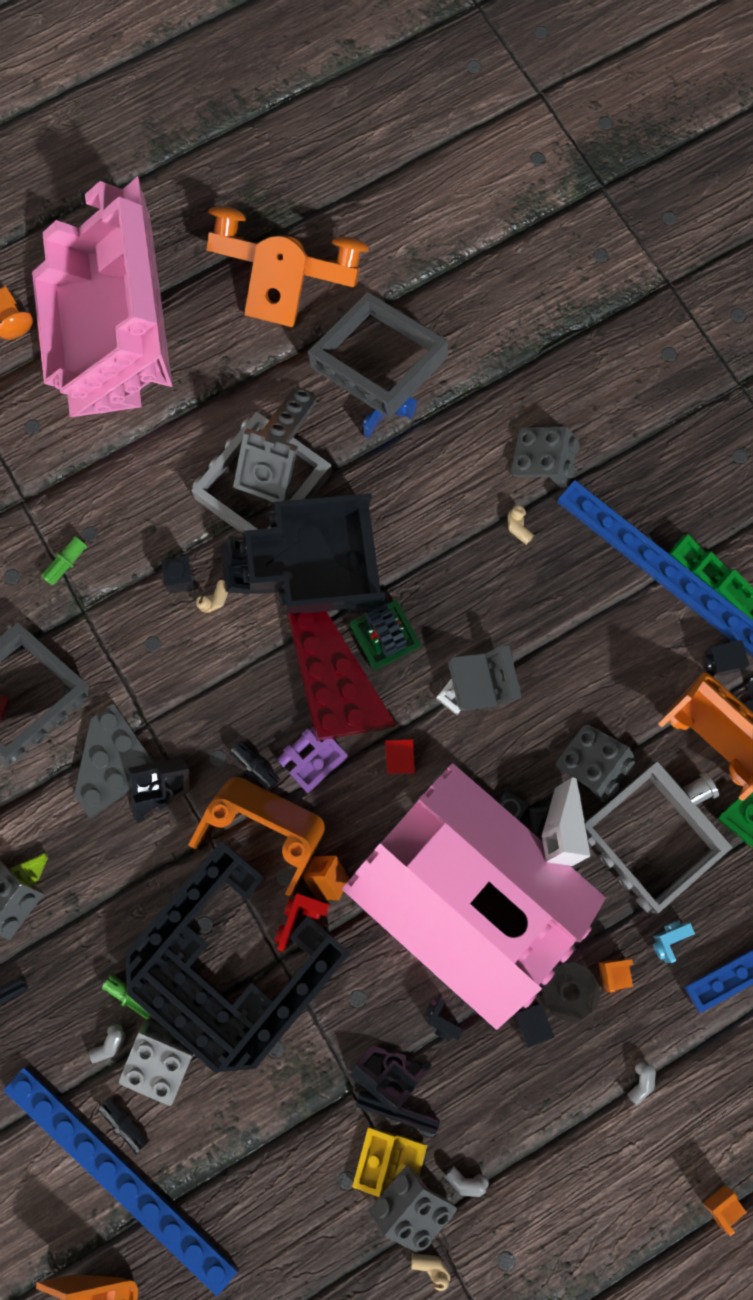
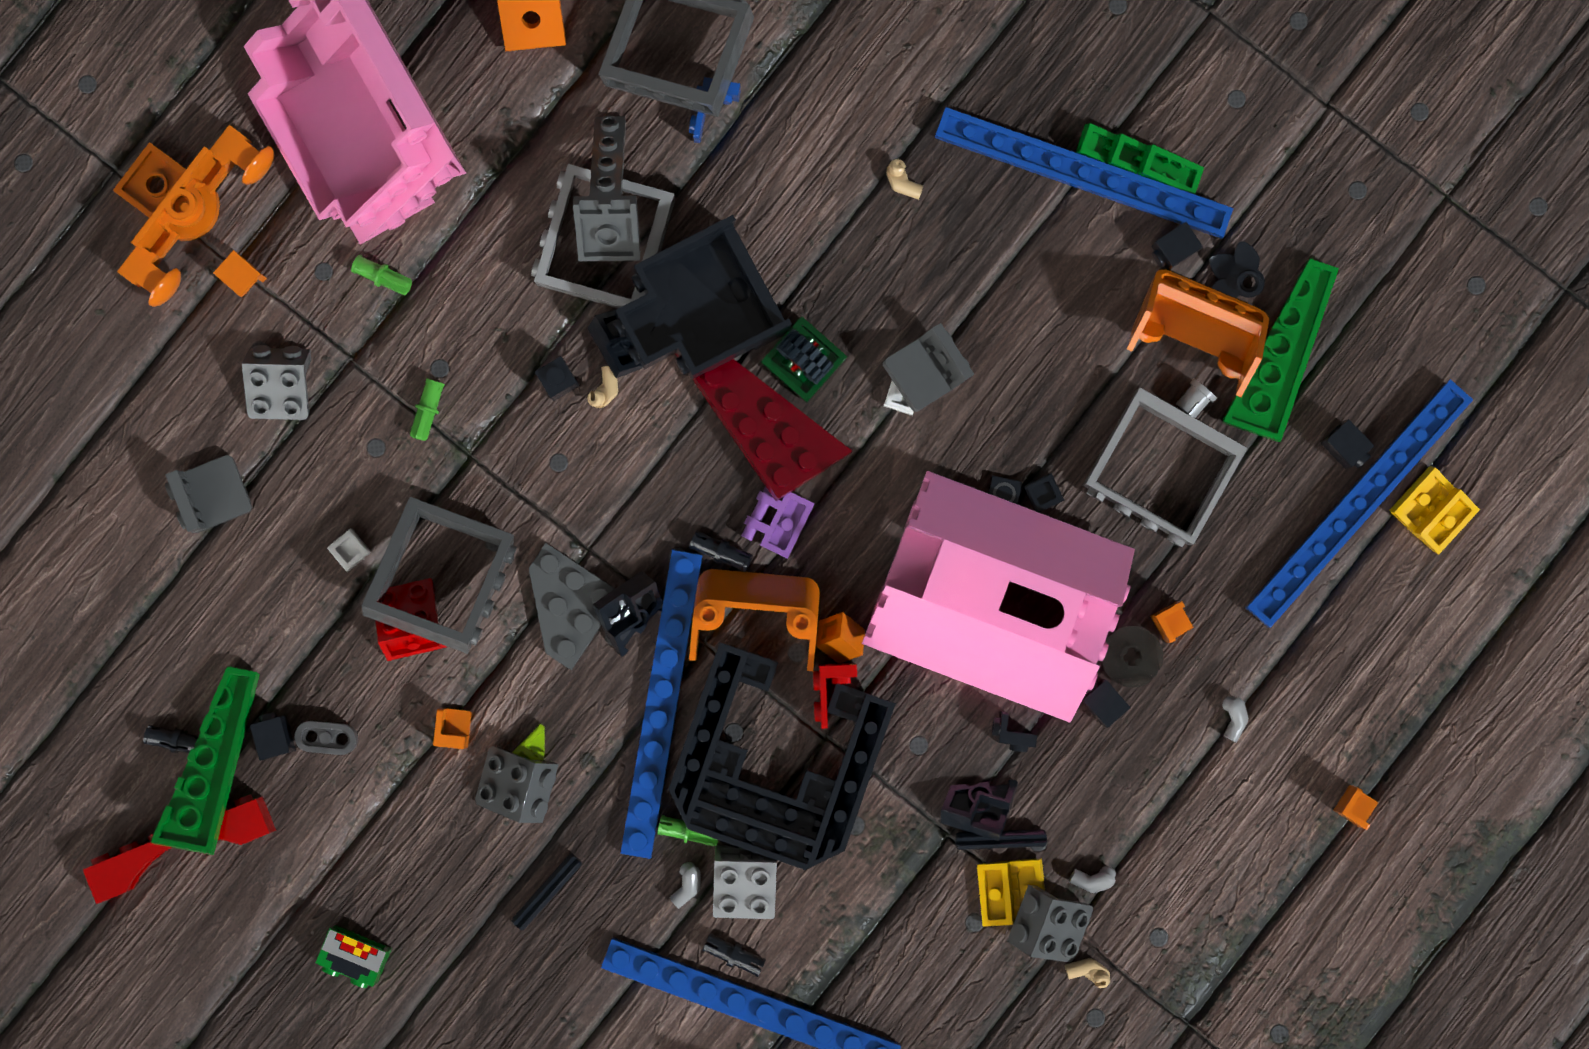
camera: 20 degrees left, 10 degrees up
(74, 444) = (381, 275): none -> bright green axle
(149, 881) = (661, 704): none -> blue plate
(400, 757) = (869, 485): red panel -> none
(546, 454) = (903, 89): dark grey bracket -> none
(564, 828) = (1067, 493): white slope -> none
(597, 762) = (1077, 410): dark grey bracket -> none
(673, 933) = (1216, 558): medium azure bracket -> none

